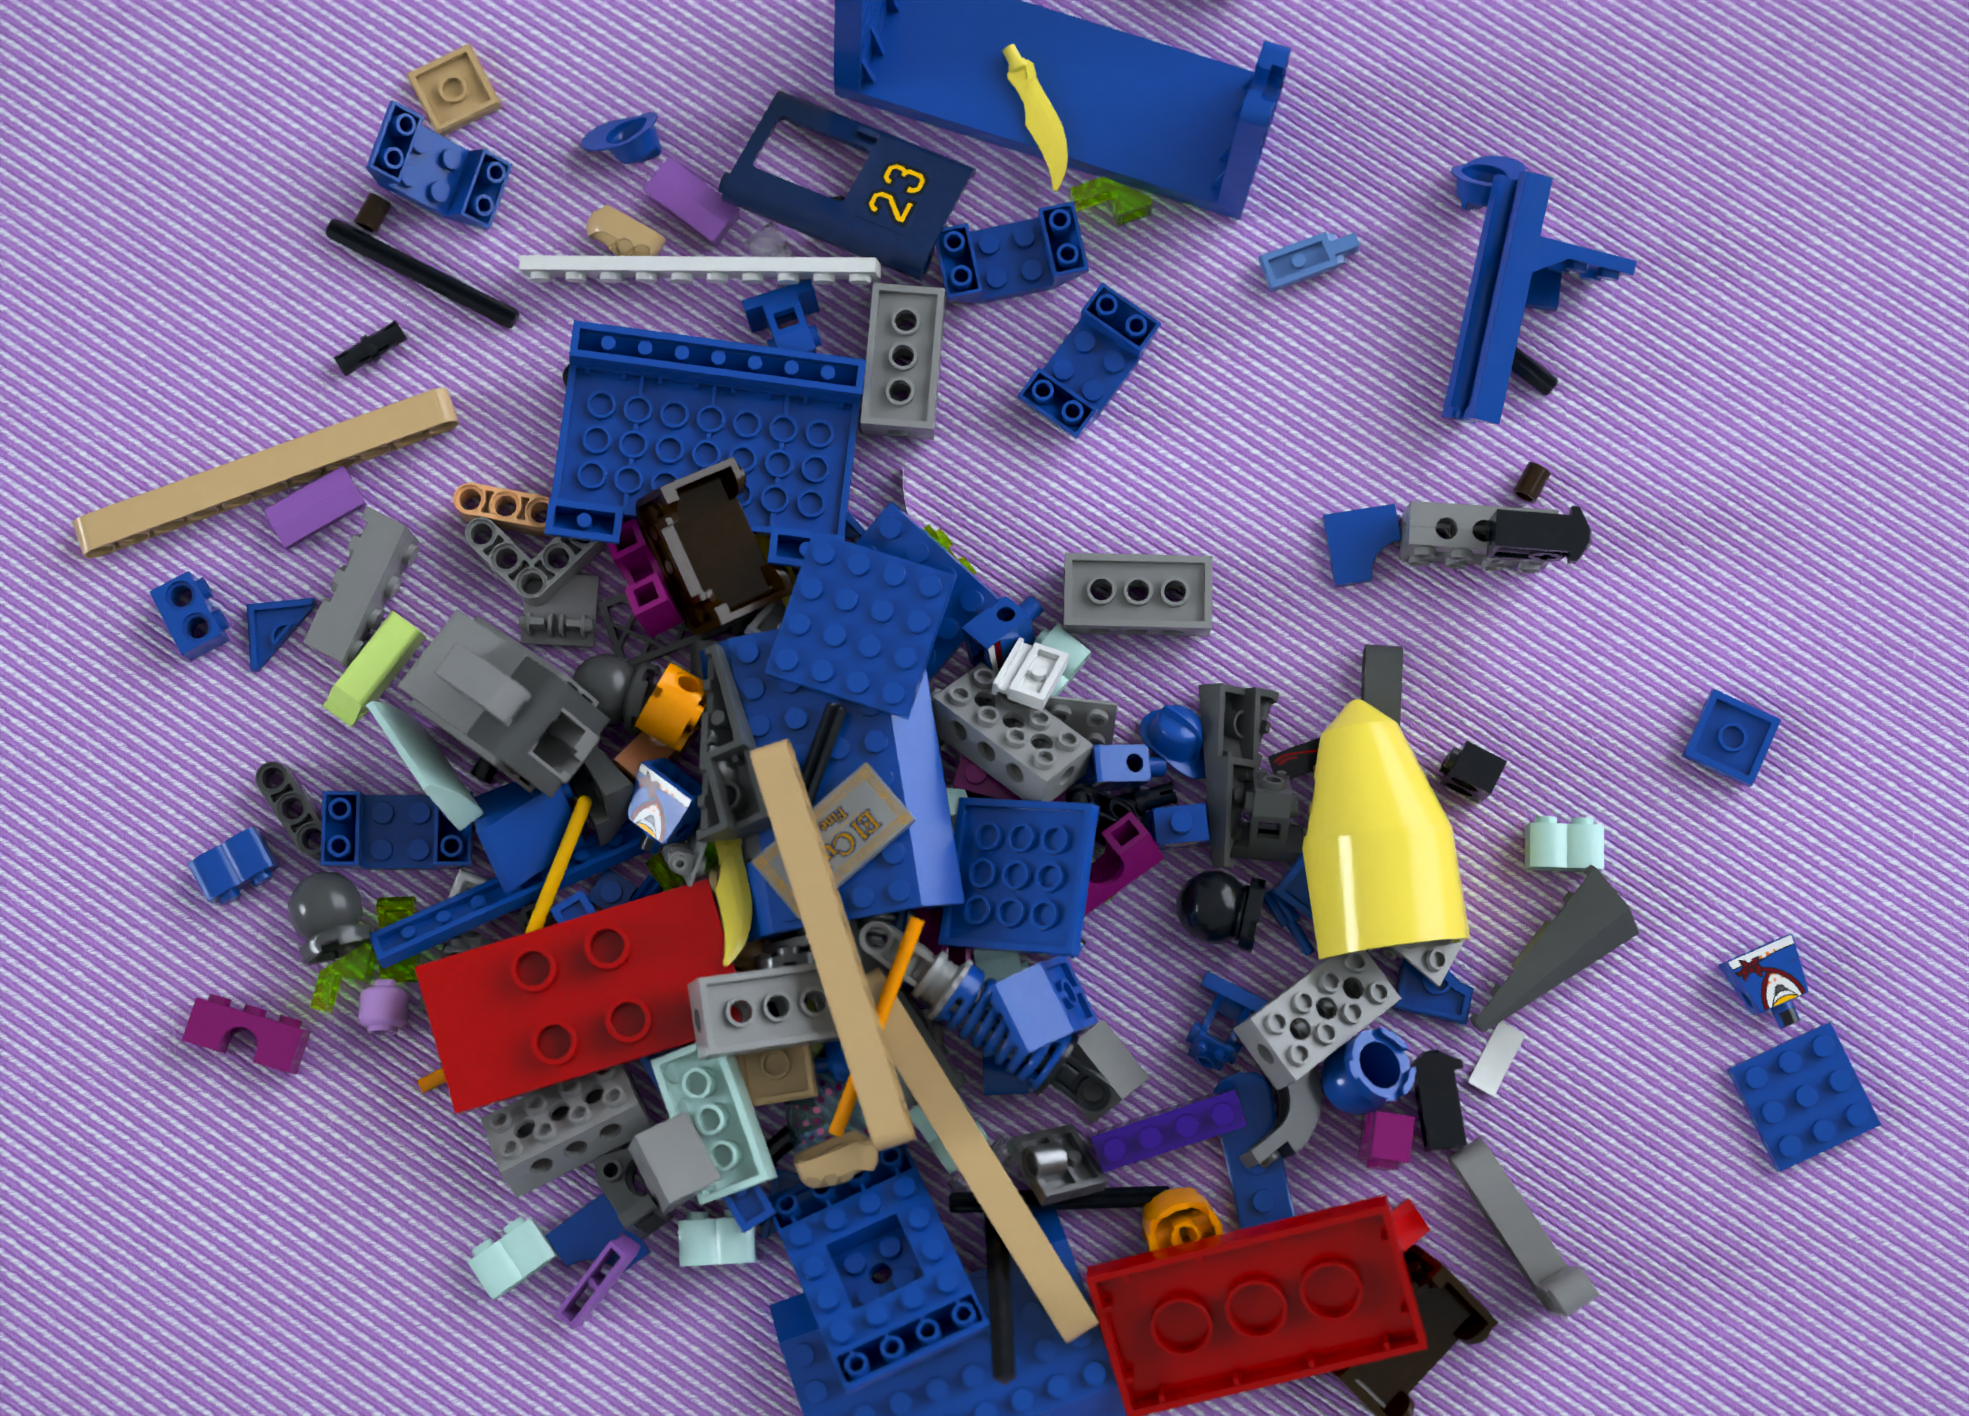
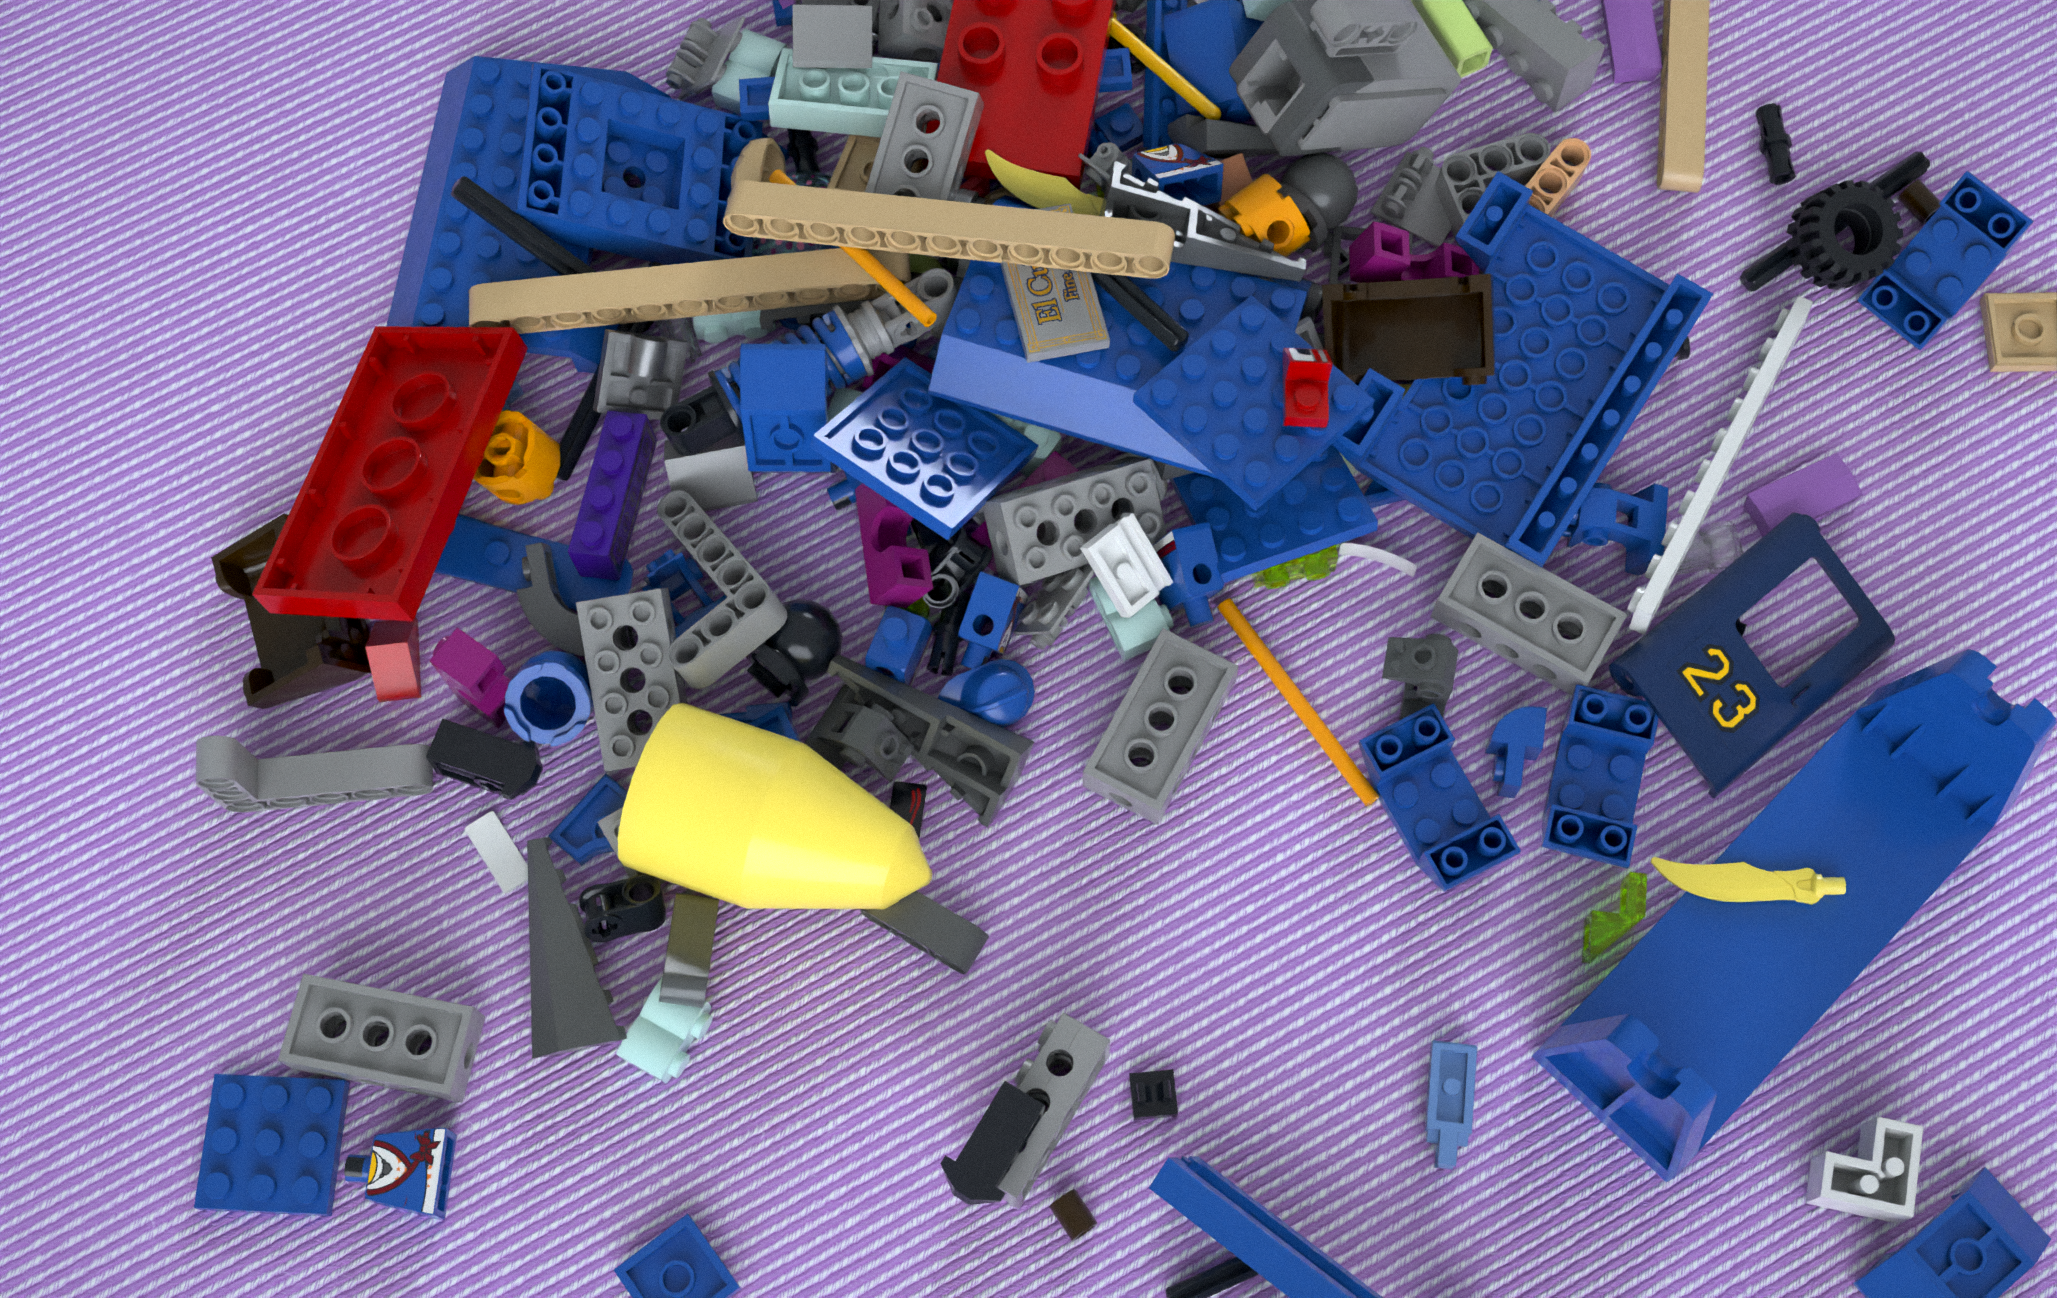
camera: 120 degrees right, 10 degrees down
(446, 230) = (1873, 231): none -> black tyre
(623, 234) = (1792, 416): tan piece -> none
(628, 139) = (1902, 461): blue piece -> none
(724, 1281) = (702, 56): none -> light grey hinge
(833, 584) = (1306, 387): none -> red slope
(992, 416) = (1424, 664): none -> dark grey tile
(1005, 331) = (1516, 738): none -> blue brick
(1056, 506) = (1298, 702): none -> light orange piece
(1203, 985) = (736, 624): none -> light grey beam
(1356, 540) = (1105, 989): blue tile -> none
(1414, 469) = (1153, 1094): none -> black tile
(1471, 771) = (792, 965): black brick -> none
(1496, 931) = (626, 906): none -> black piece
(1504, 855) = (689, 950): none -> dark grey beam
(1713, 1058) = (368, 1012): none -> light grey brick

